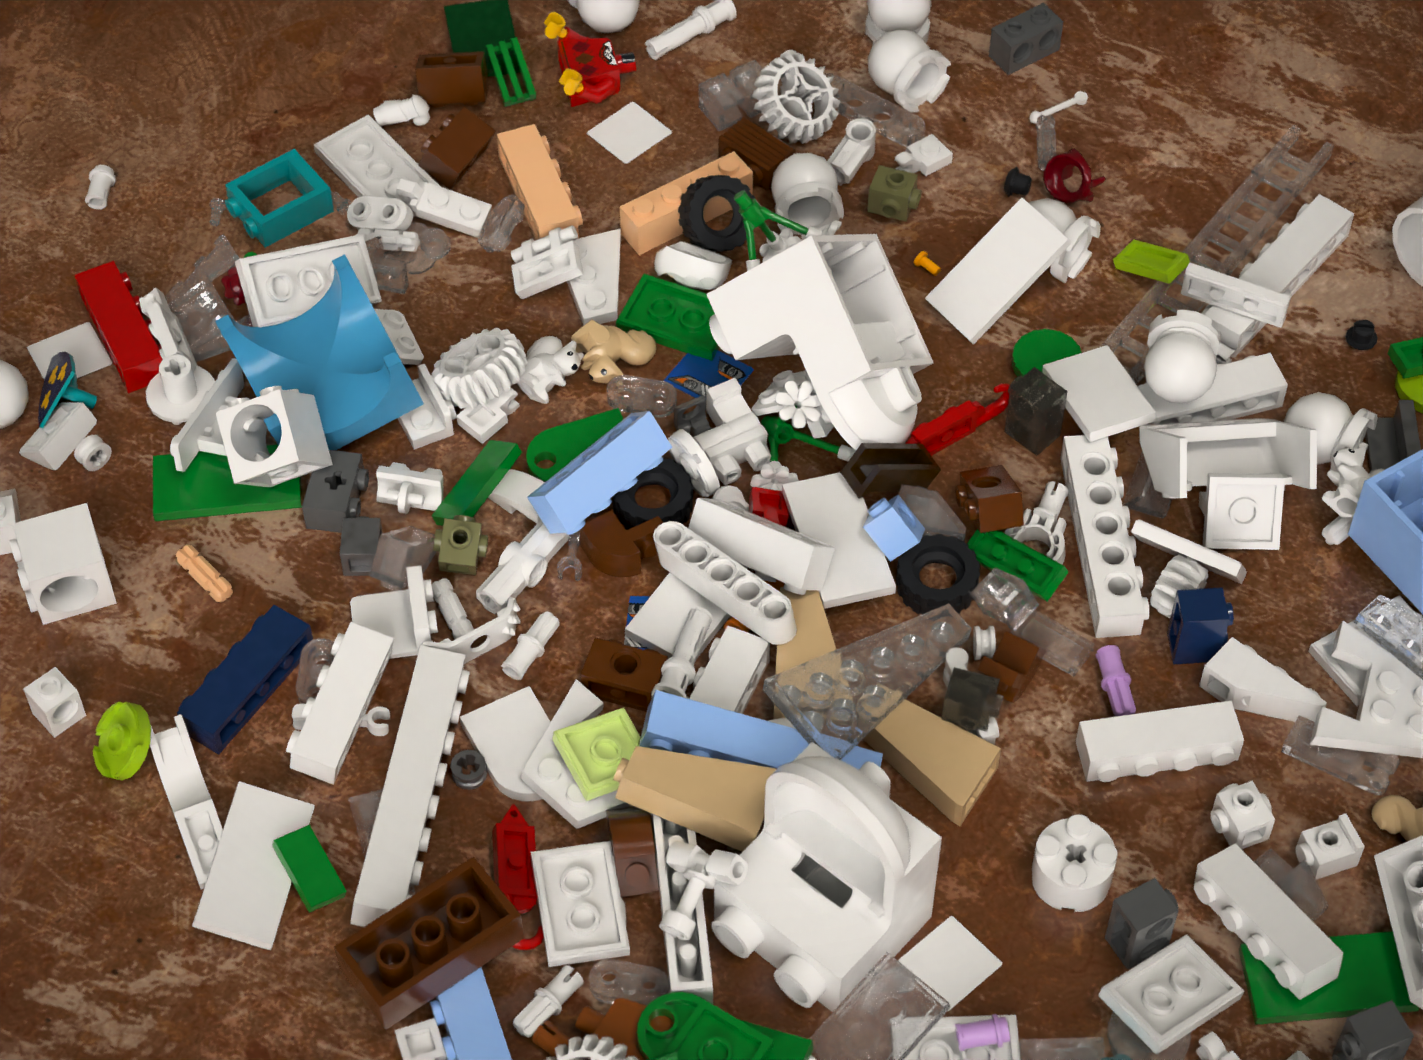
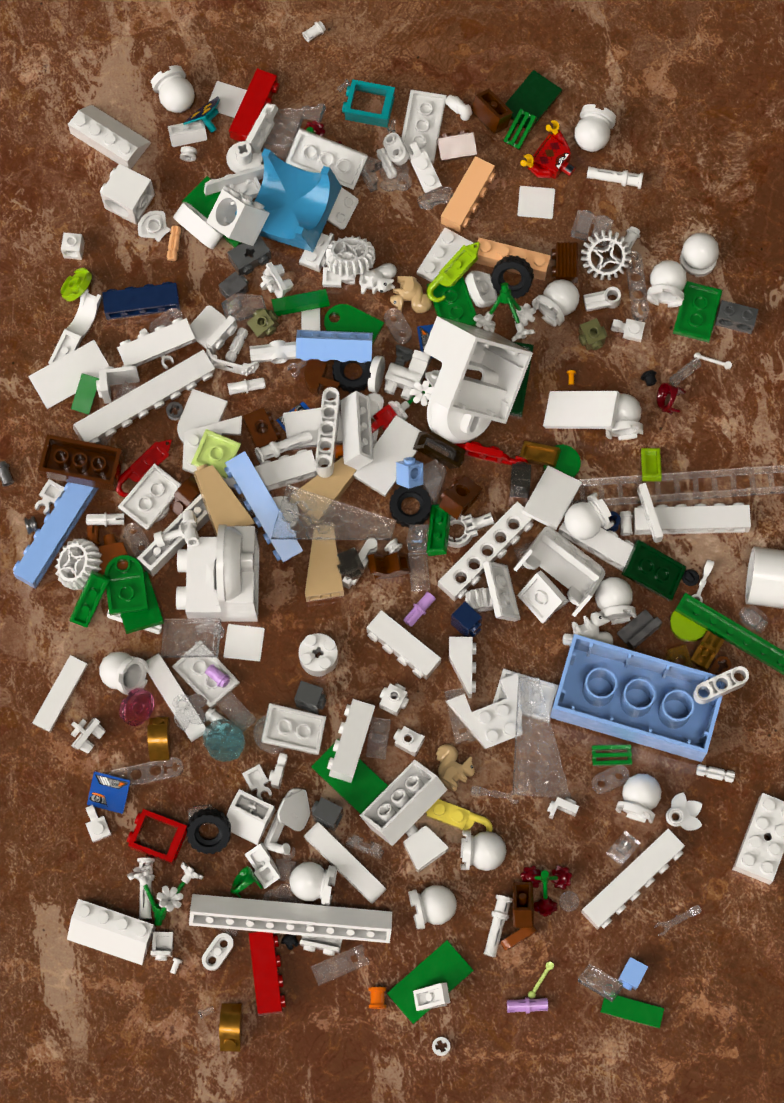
camera: 50 degrees right, 20 degrees up
(146, 578) = (153, 225): none -> white animal
(216, 517) = (196, 224): none -> white beam
(329, 802) = (115, 376): none -> white bracket
(546, 262) = (427, 237): white plate -> none
(635, 268) = (454, 269): none -> lime plate
(978, 79) = (697, 311): none -> green tile
(1009, 365) = (540, 453): none -> pearl gold tile
(1319, 361) = (654, 570): none -> dark green tile
(1368, 310) = (707, 570): none -> white piece

